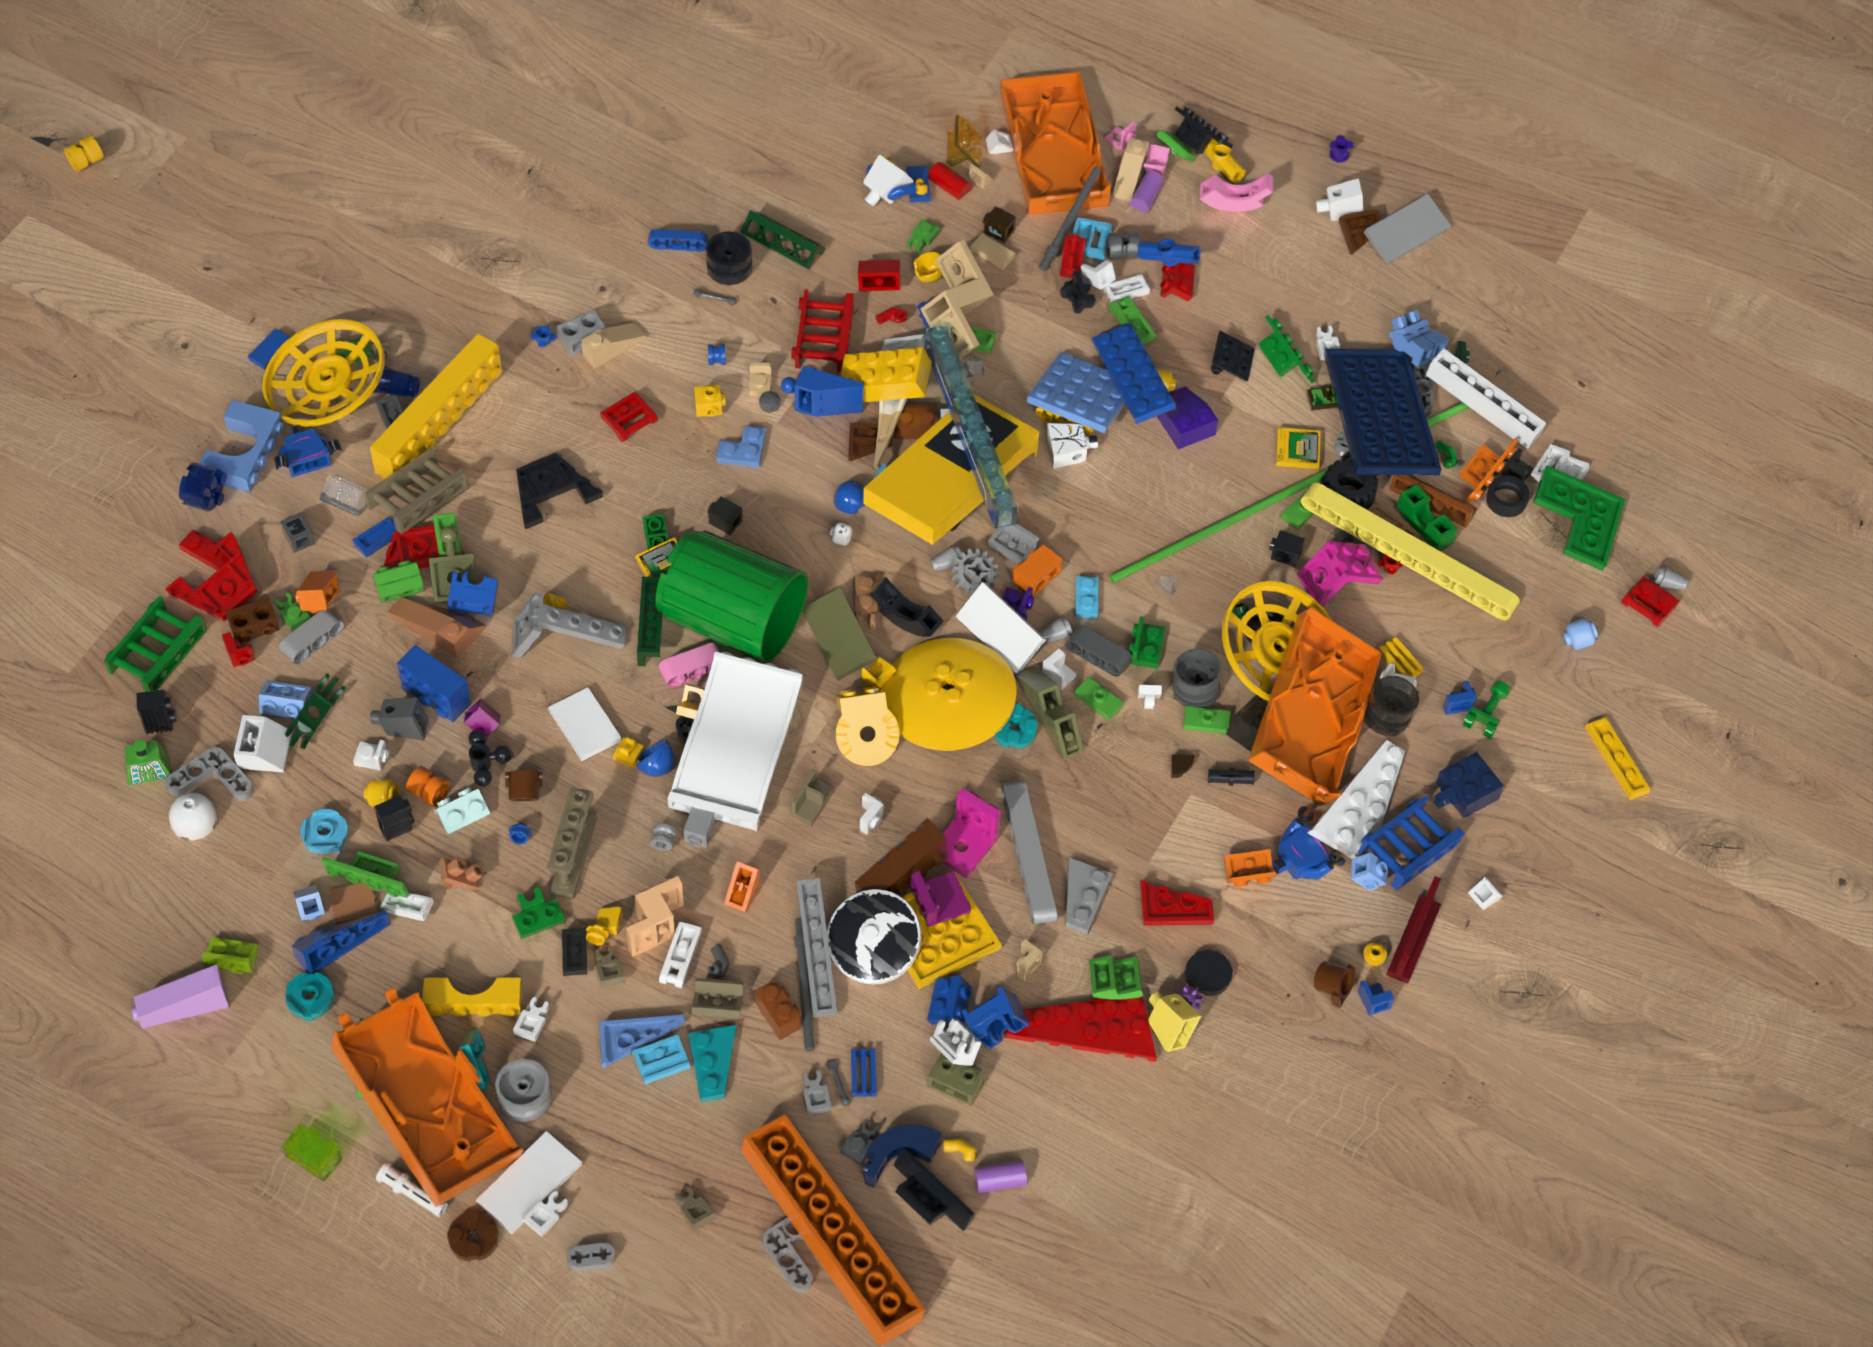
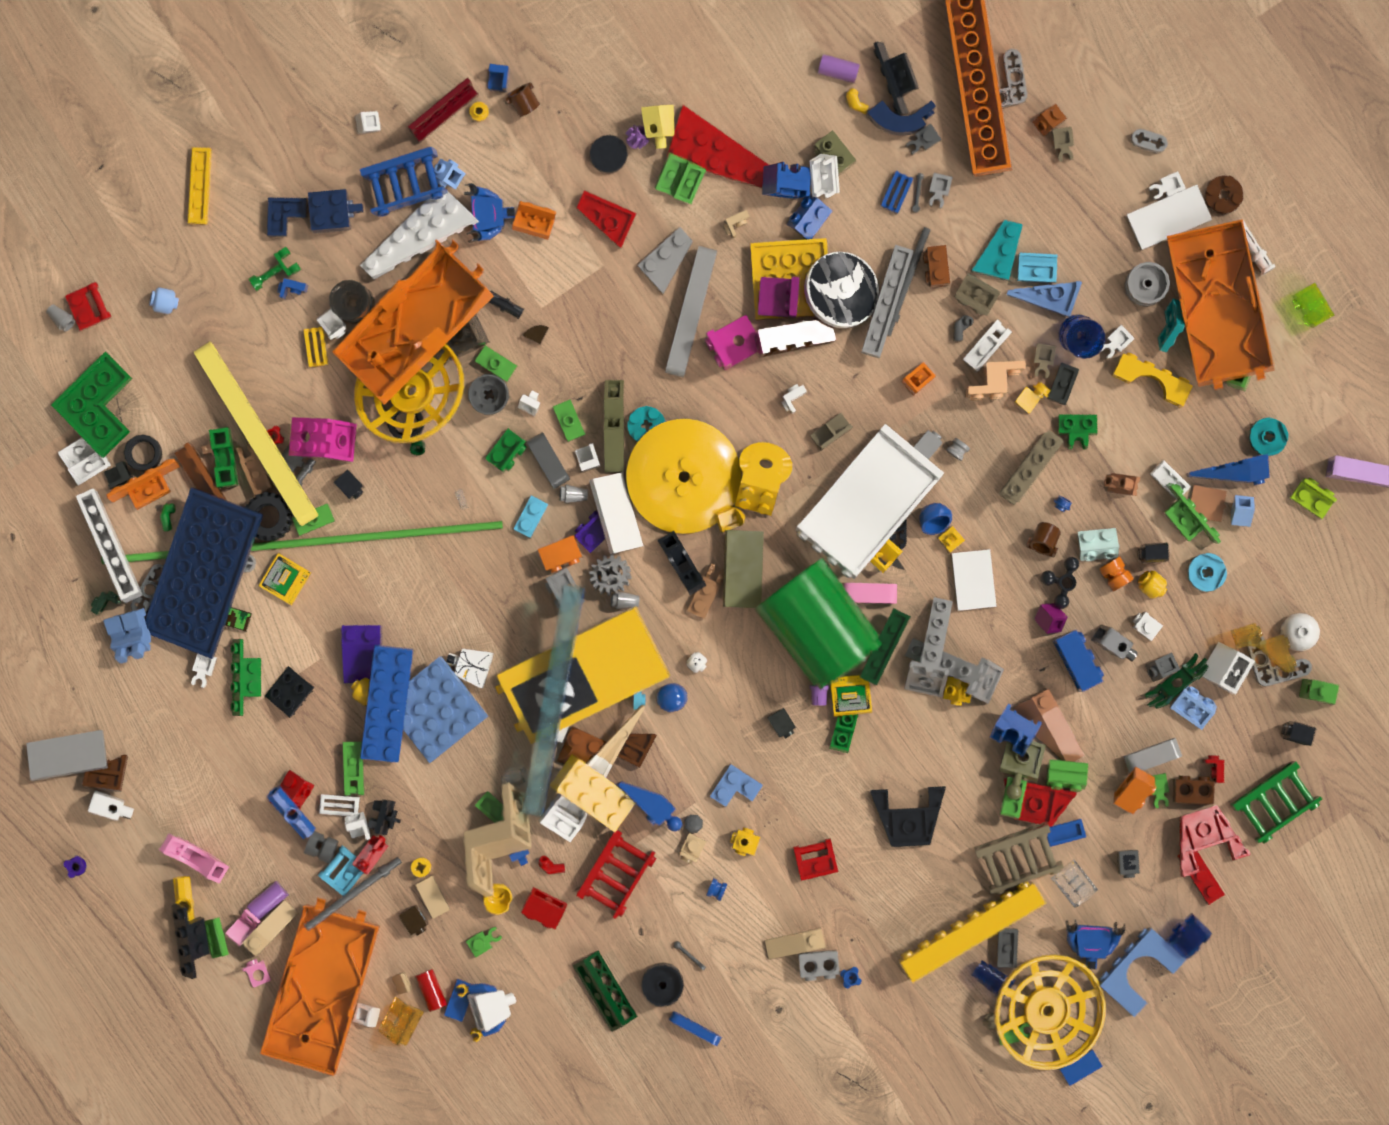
camera: 150 degrees left, 30 degrees up
(217, 781) = (1275, 647): none -> clear yellow arch
(335, 721) = (1162, 667): none -> dark grey bracket
(575, 999) = (1091, 339): none -> clear blue wheel
(599, 638) = (928, 675): none -> light grey bracket
(722, 1227) = (1049, 119): none -> dark orange bracket
(1018, 268) = (424, 866): none -> yellow wheel
(1518, 766) = (280, 210): none -> dark blue plate

